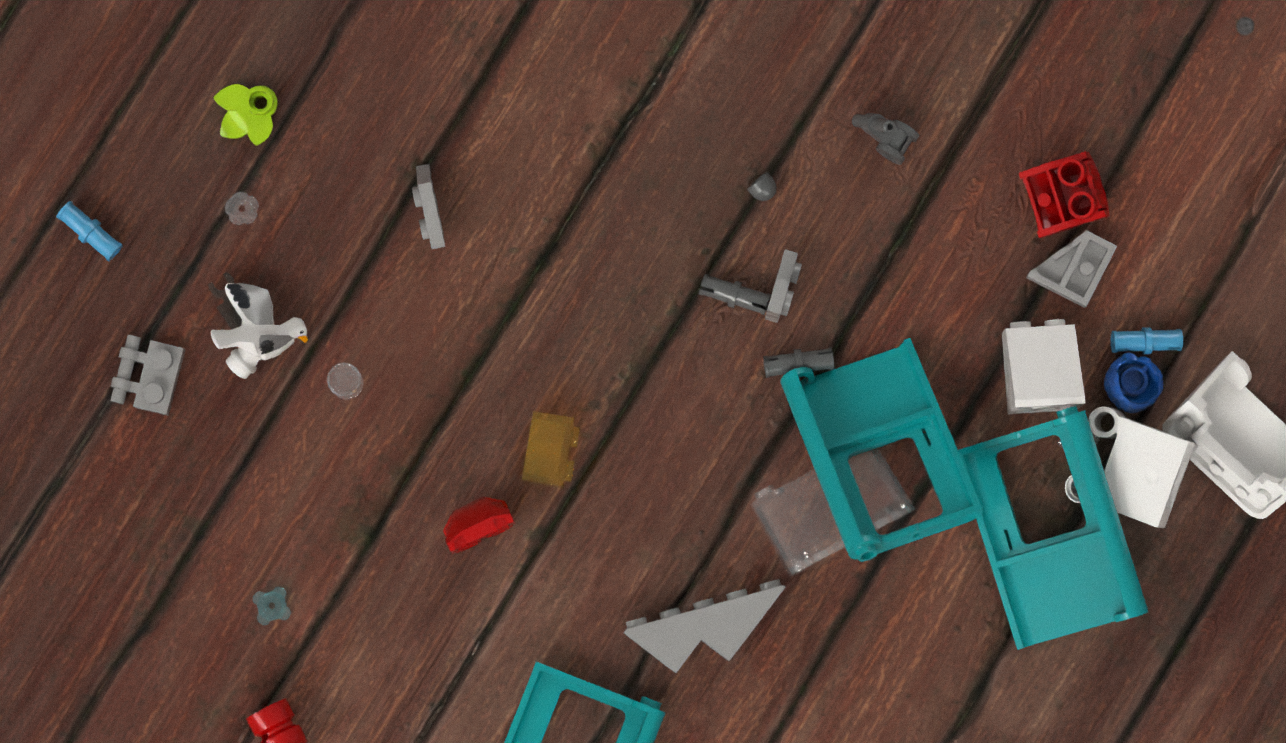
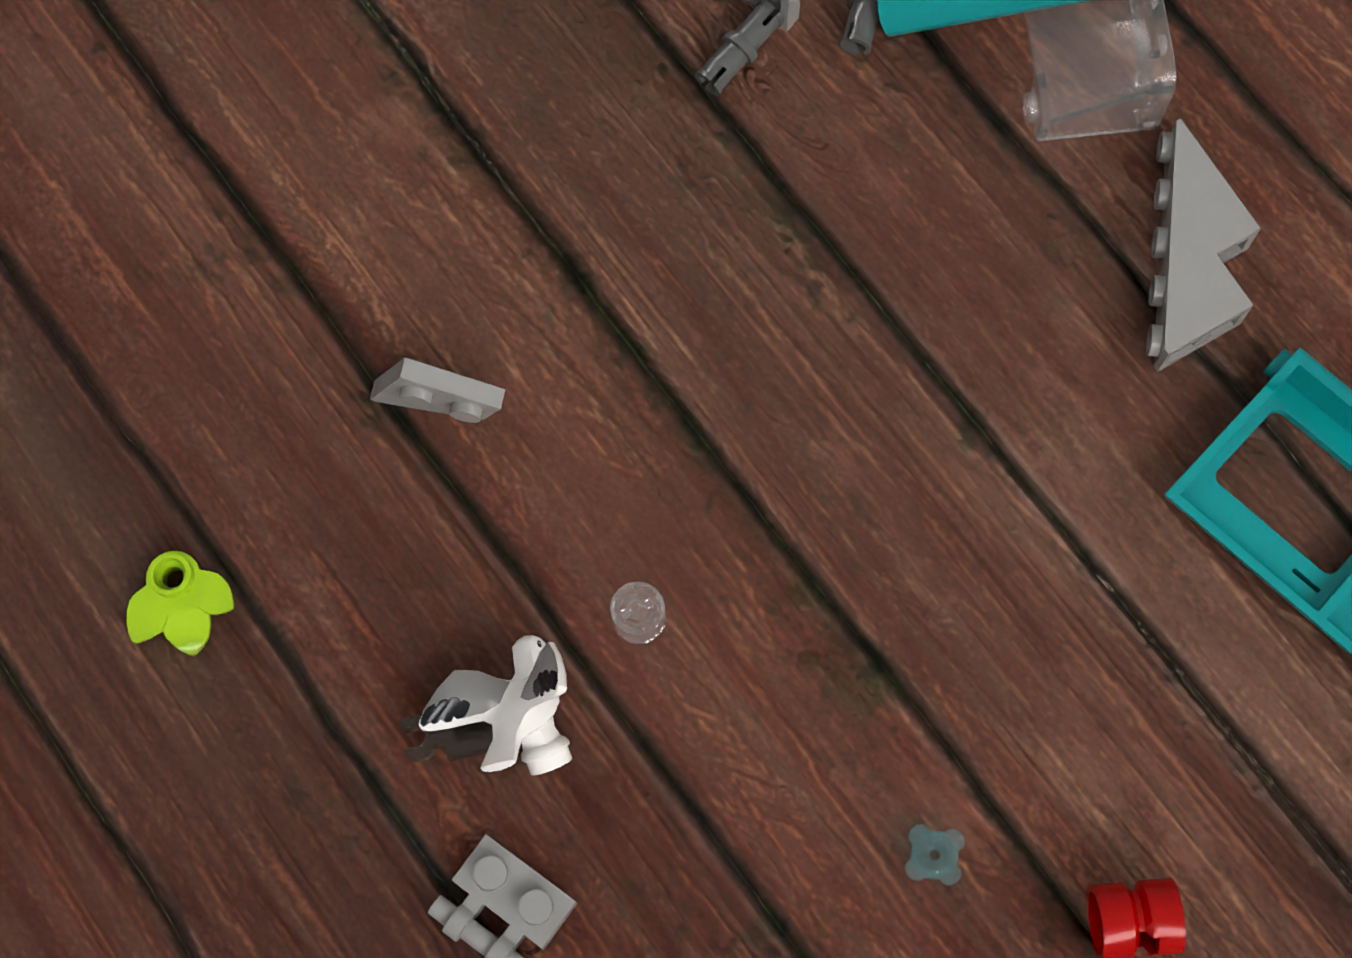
camera: 65 degrees left, 10 degrees down
(89, 231) = (242, 909): dark azure pin -> none
(241, 199) = (306, 655): clear plate -> none
(475, 522) = (929, 500): red slope -> none
(549, 450) = (858, 364): clear yellow brick -> none

